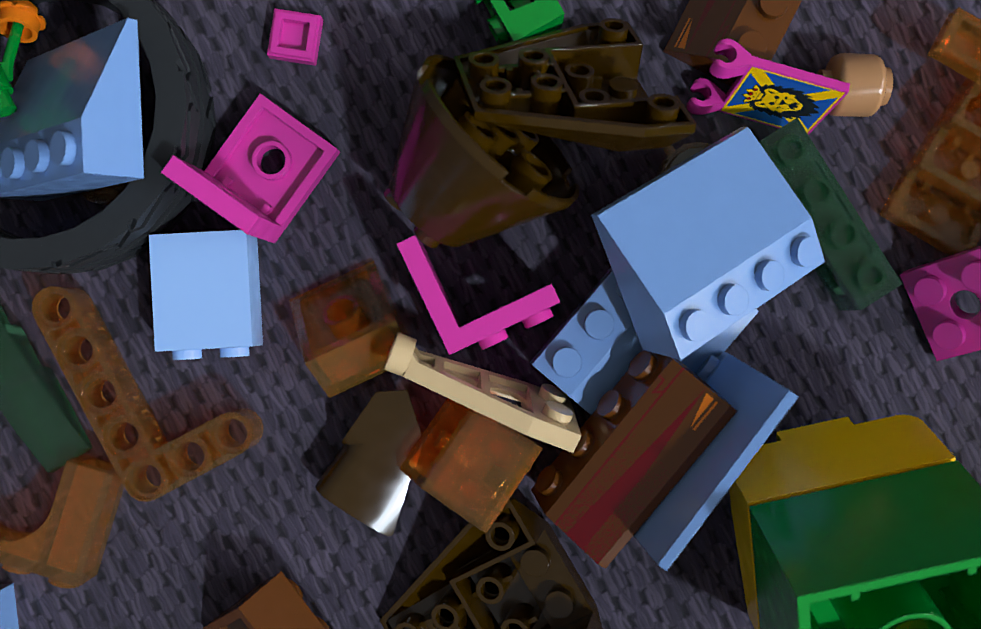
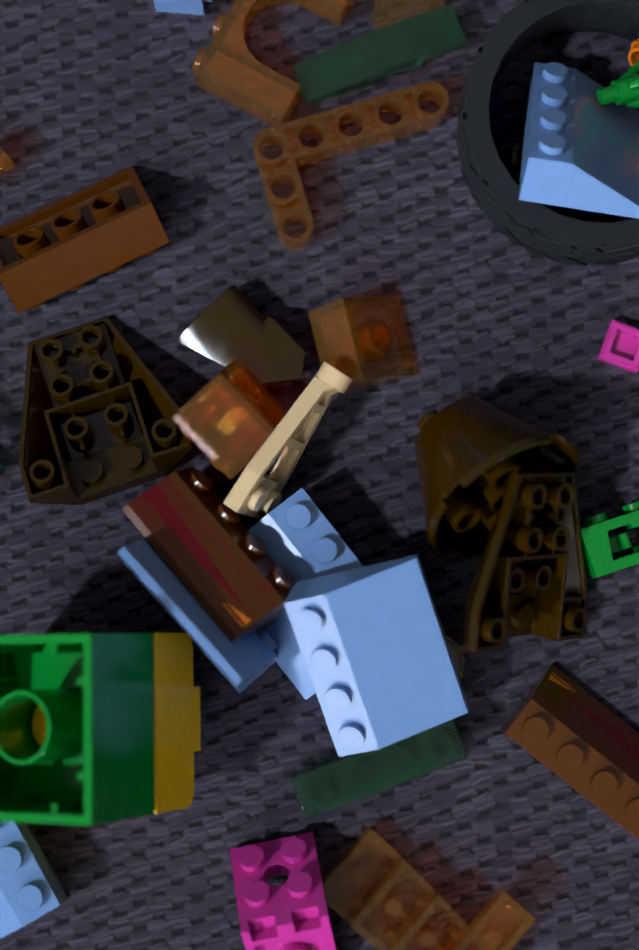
camera: 100 degrees right, 5 degrees down
(205, 293) = (417, 227): light blue brick -> none
(238, 185) = (505, 271): dark pink bracket -> none
(484, 330) = (357, 422): dark pink bracket -> none
(766, 90) = (495, 736): flag -> none
(868, 79) = (487, 820): medium nougat head -> none

